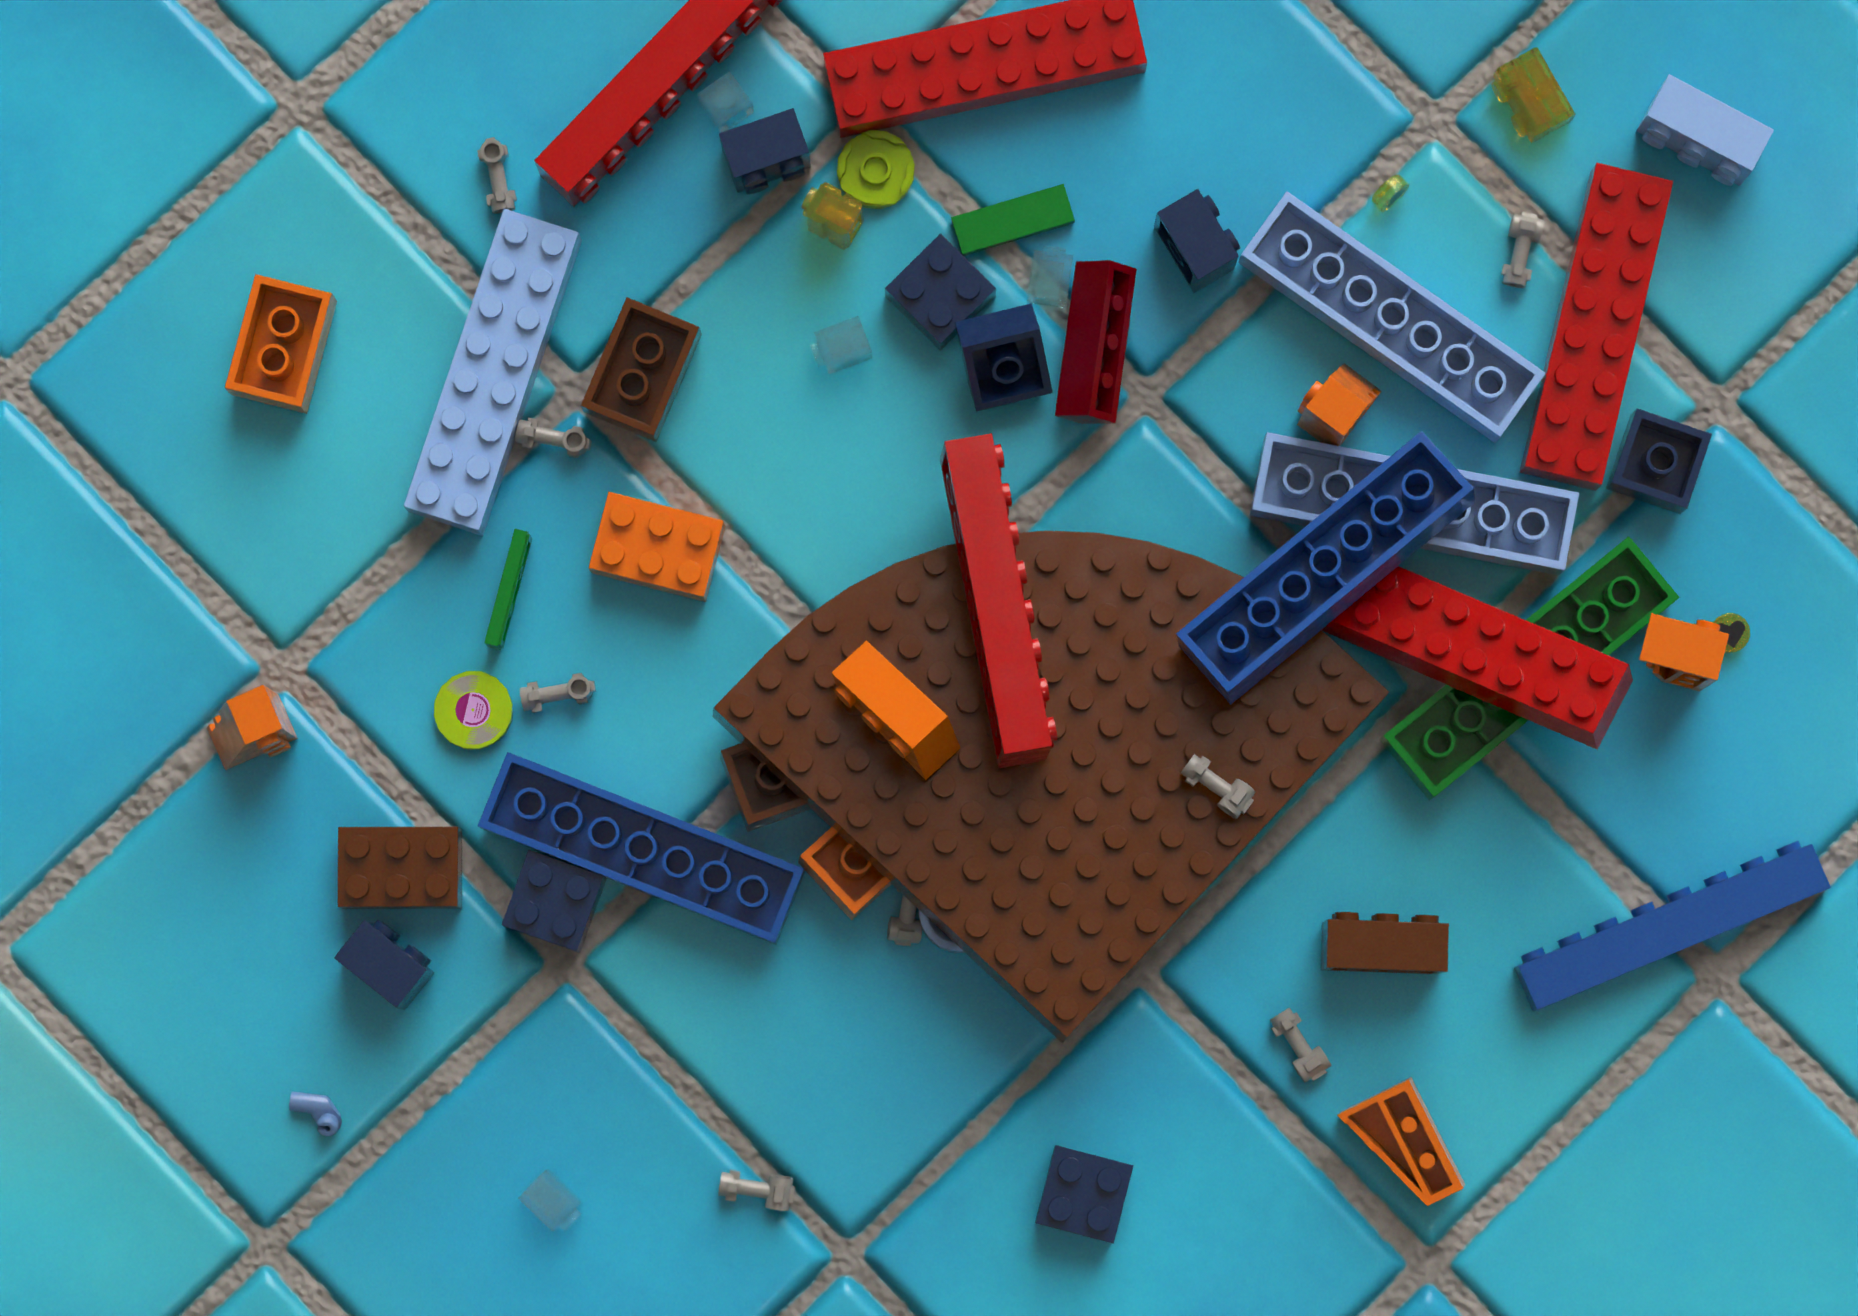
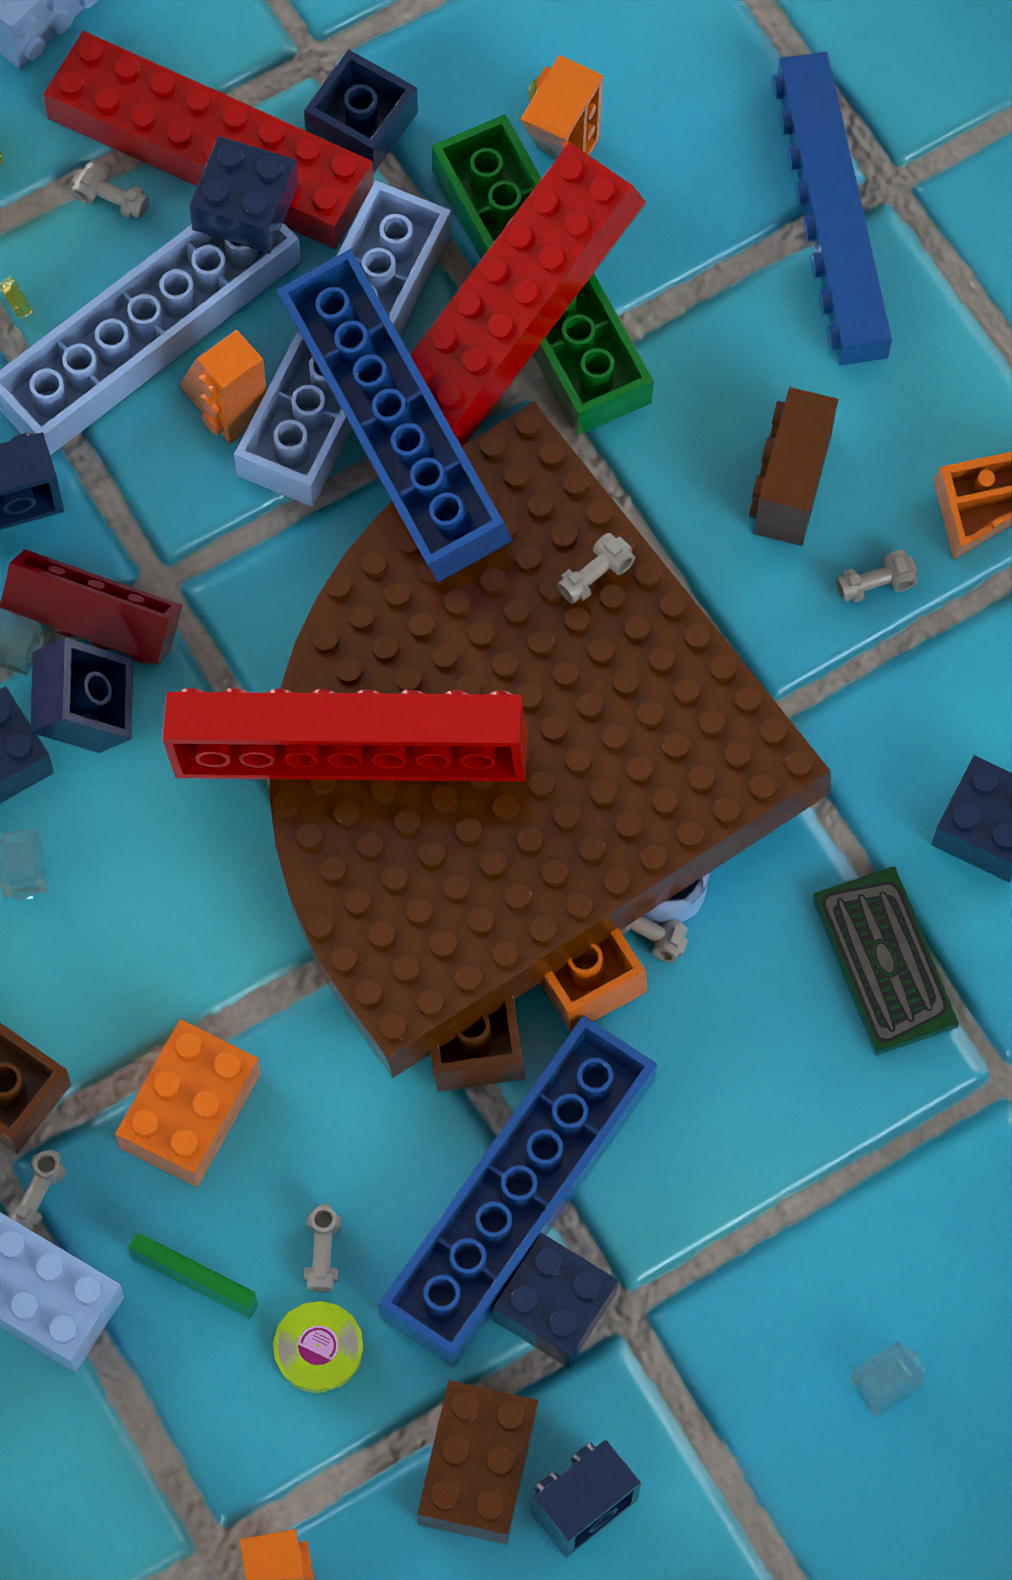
camera: 80 degrees left, 15 degrees down
(777, 1192) = (927, 1135): light grey bar -> none
(896, 709) = (437, 859): orange wedge -> none
(932, 1125) = (885, 960): none -> tile
(1524, 375) = (244, 194): none -> dark blue brick

